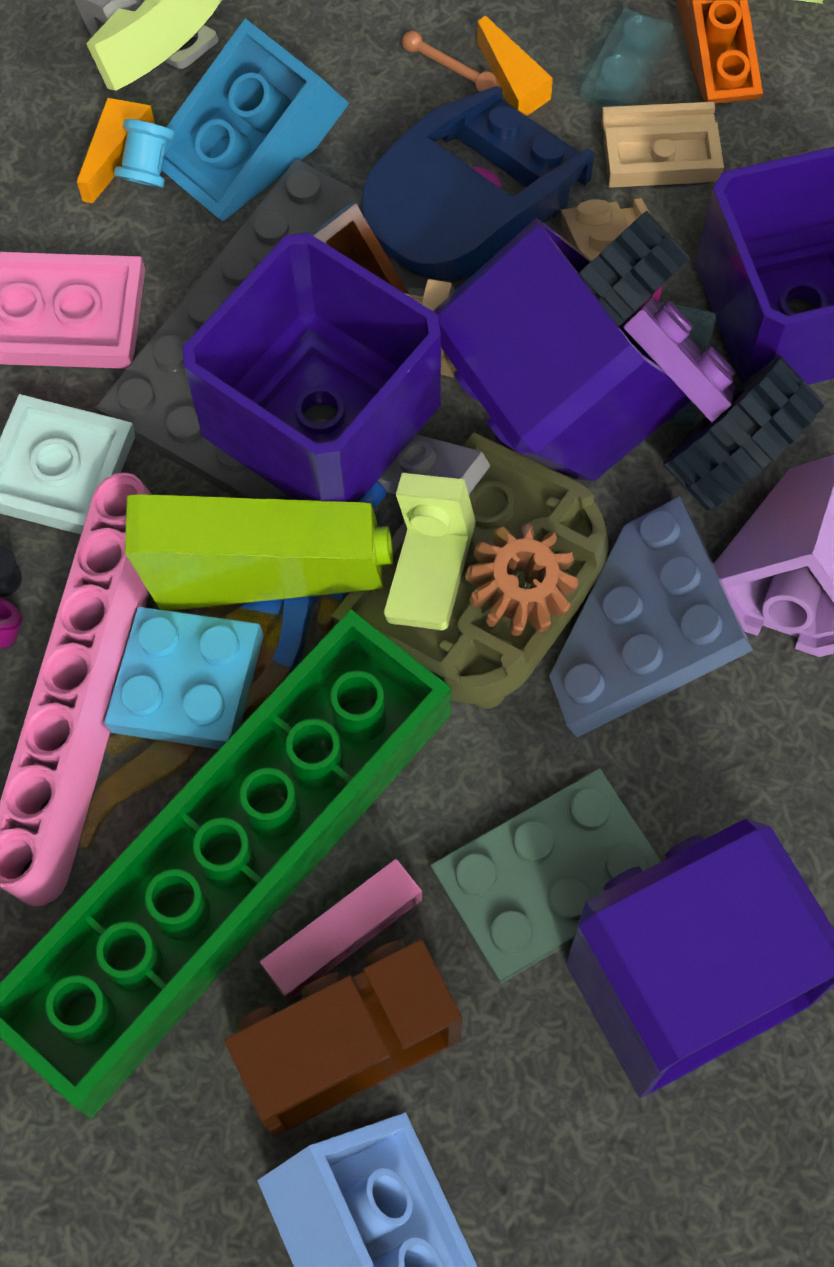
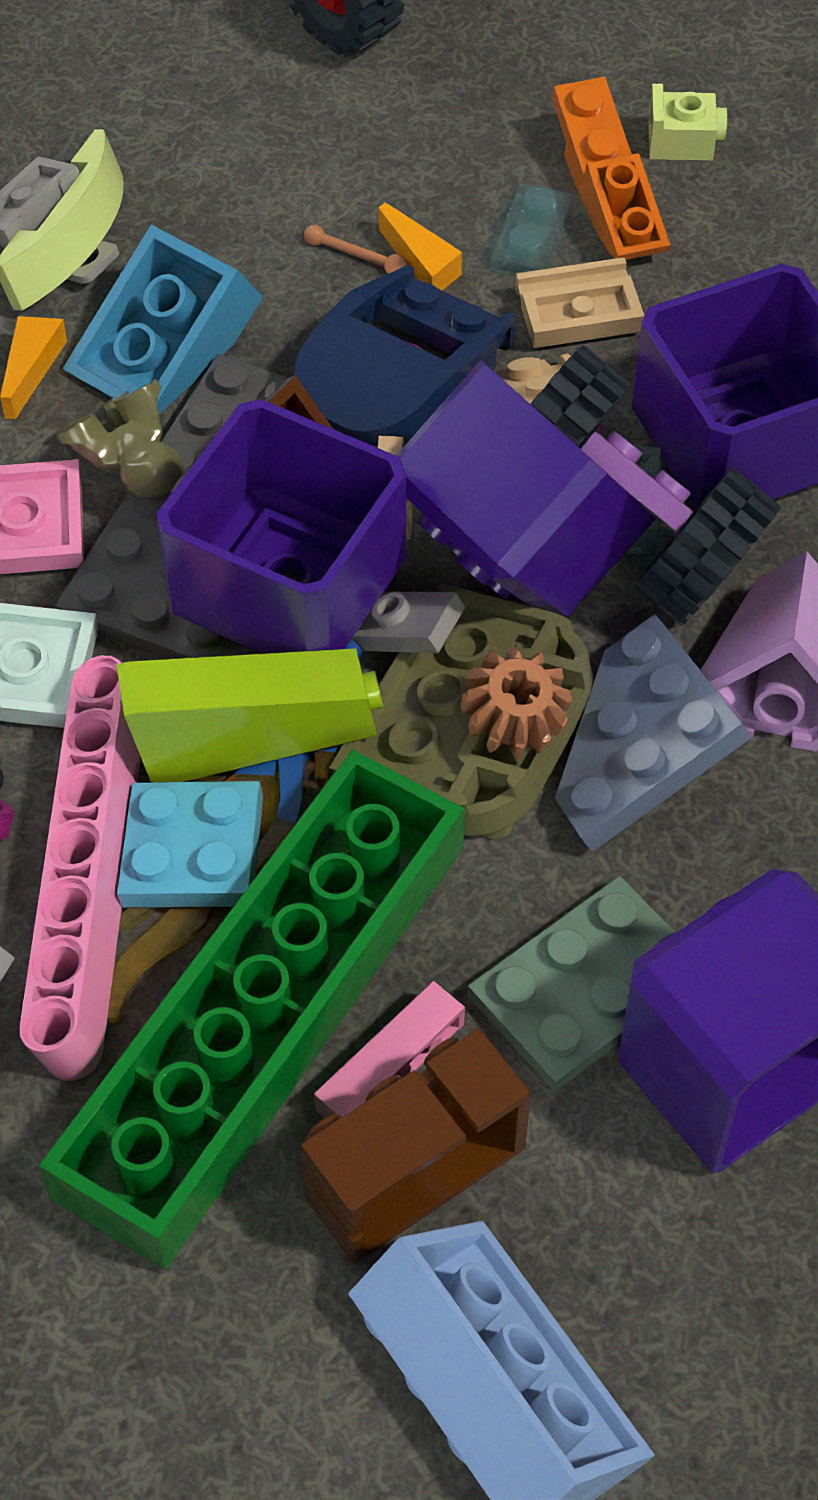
camera: 10 degrees left, 10 degrees down
(143, 153) = (64, 363): medium azure bush -> none
(188, 246) = (128, 443): none -> olive animal
(433, 550) = (422, 688): yellowish green bracket -> none

